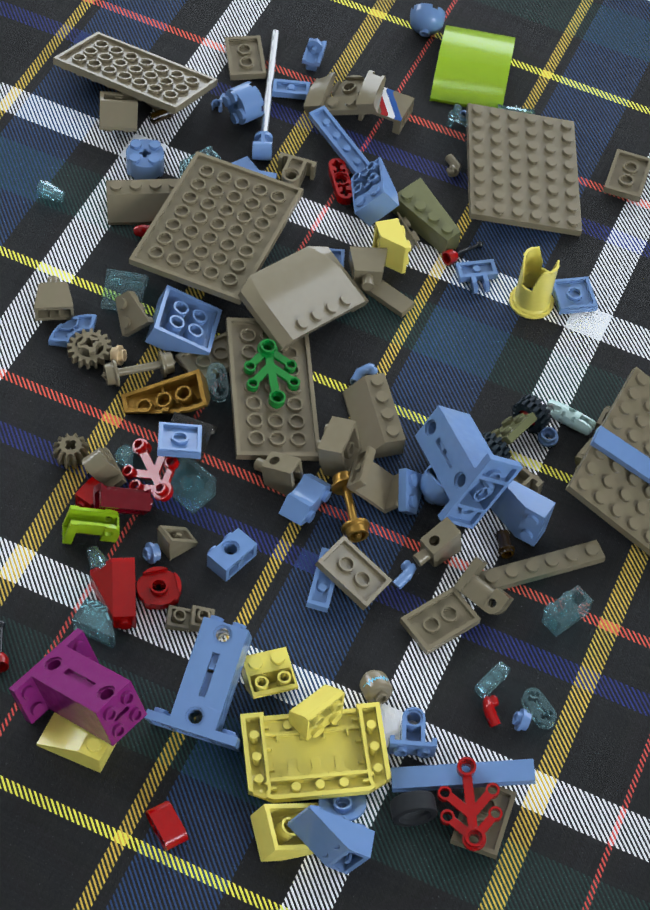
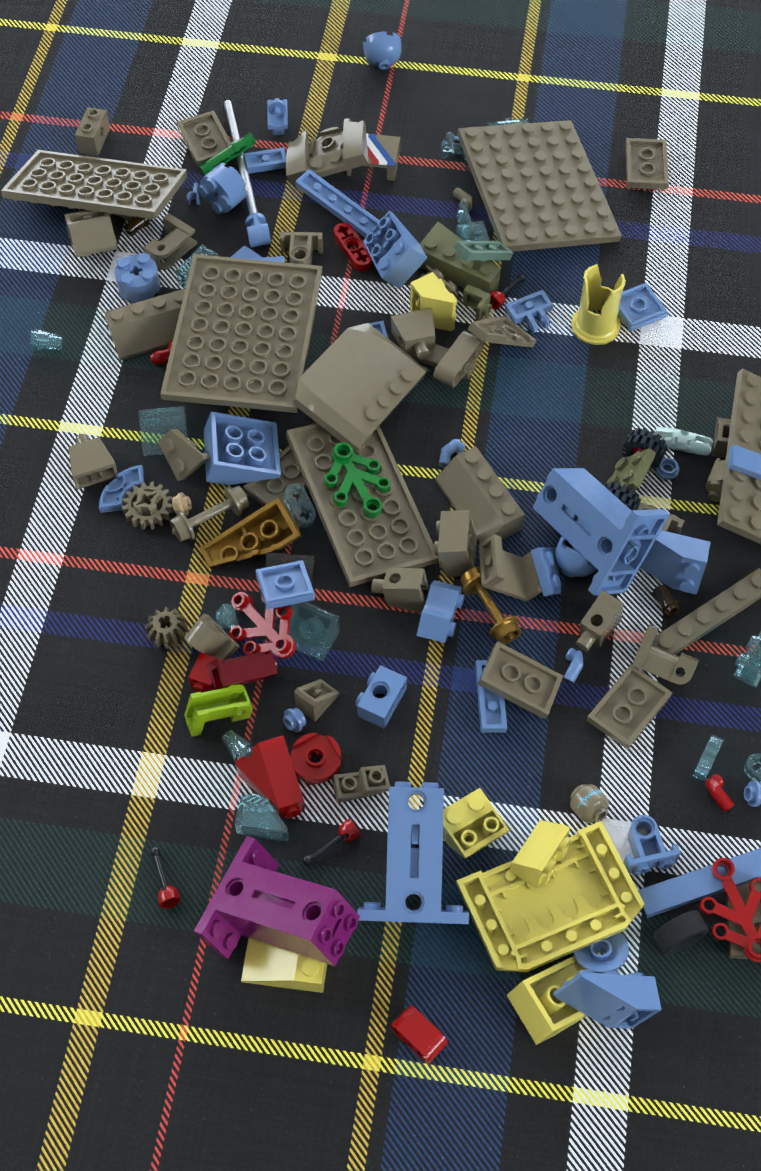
camera: 10 degrees left, 5 degrees up
(149, 27) = (92, 131): none -> dark tan brick
(163, 653) = (347, 832): none -> hinge
(184, 141) = (173, 245): none -> dark tan piece
(260, 75) = (234, 150): none -> green pin
(397, 297) = (458, 359): none -> dark tan beam
(433, 254) = (478, 300): none -> olive bracket
(443, 284) = (501, 331): none -> dark tan wing
(449, 211) = (483, 250): none -> sand green plate
(450, 197) = (467, 229): none -> clear light blue bracket
(472, 67) = (447, 89): lime slope -> none

